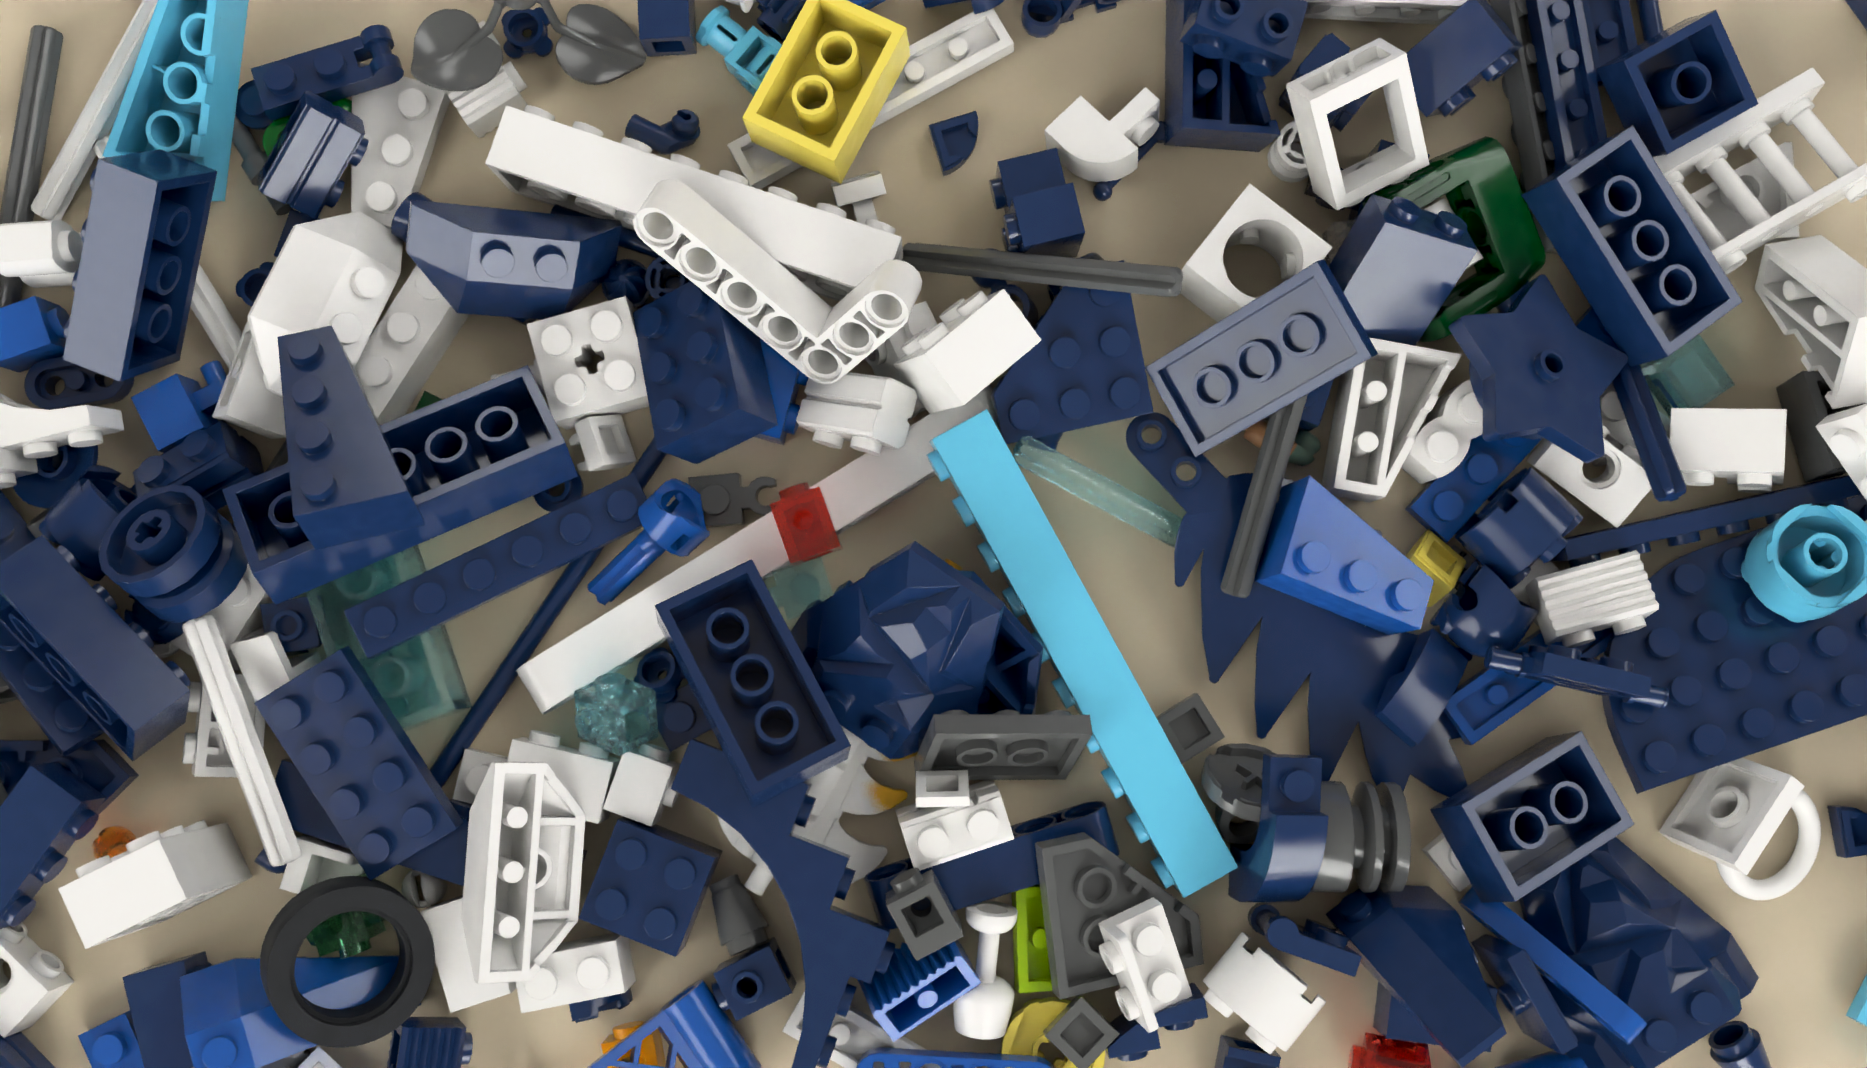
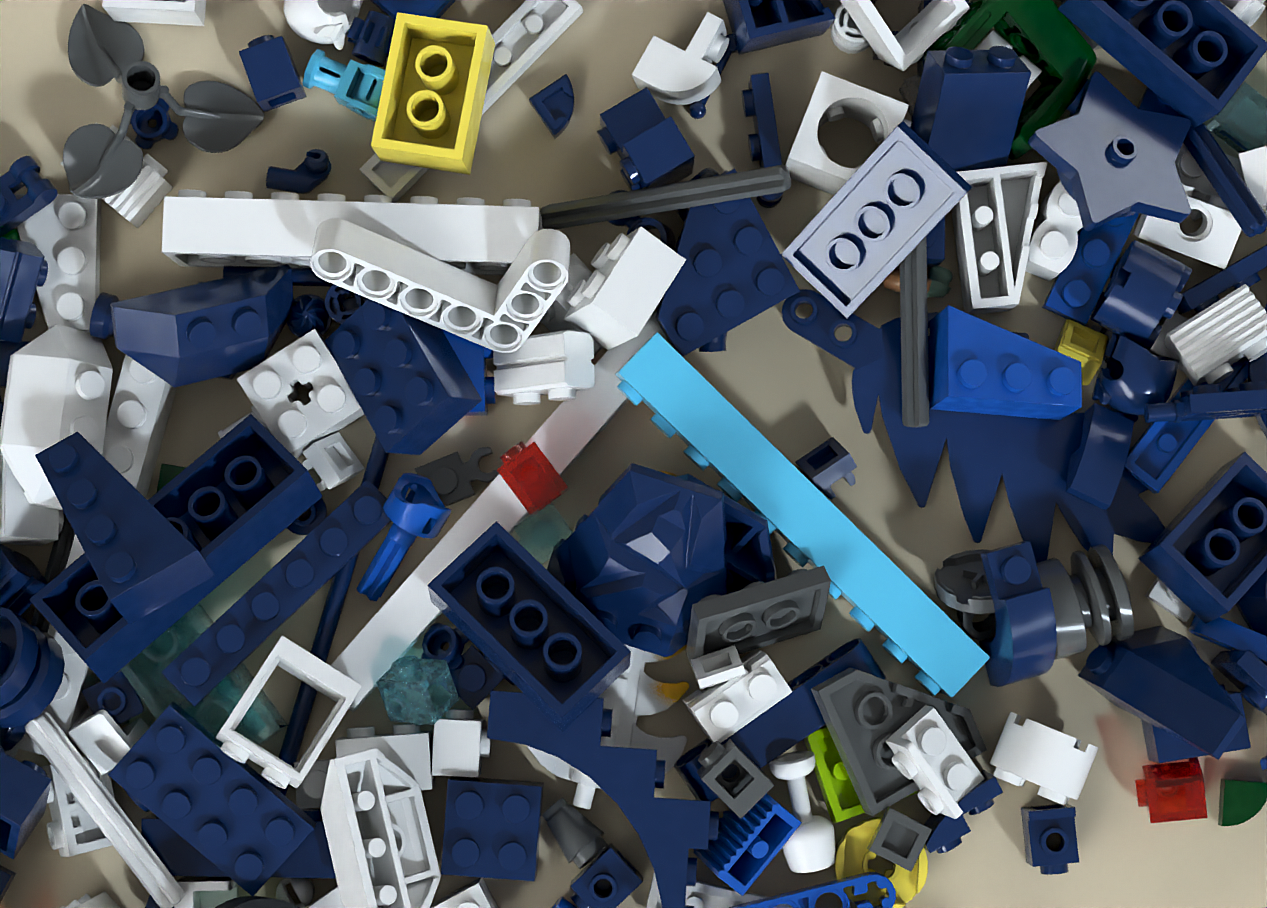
camera: 20 degrees left, 0 degrees up
(508, 661) = (315, 674): none -> white window
(859, 192) = (487, 176): white tile -> none
(1097, 489) = (772, 371): clear light blue axle -> none
(1125, 608) = (827, 465): none -> dark blue tile
(1163, 246) = (763, 144): none -> dark blue plate
(1190, 727) = (913, 551): dark grey plate -> none
(1312, 942) = (1075, 700): dark blue plate -> none

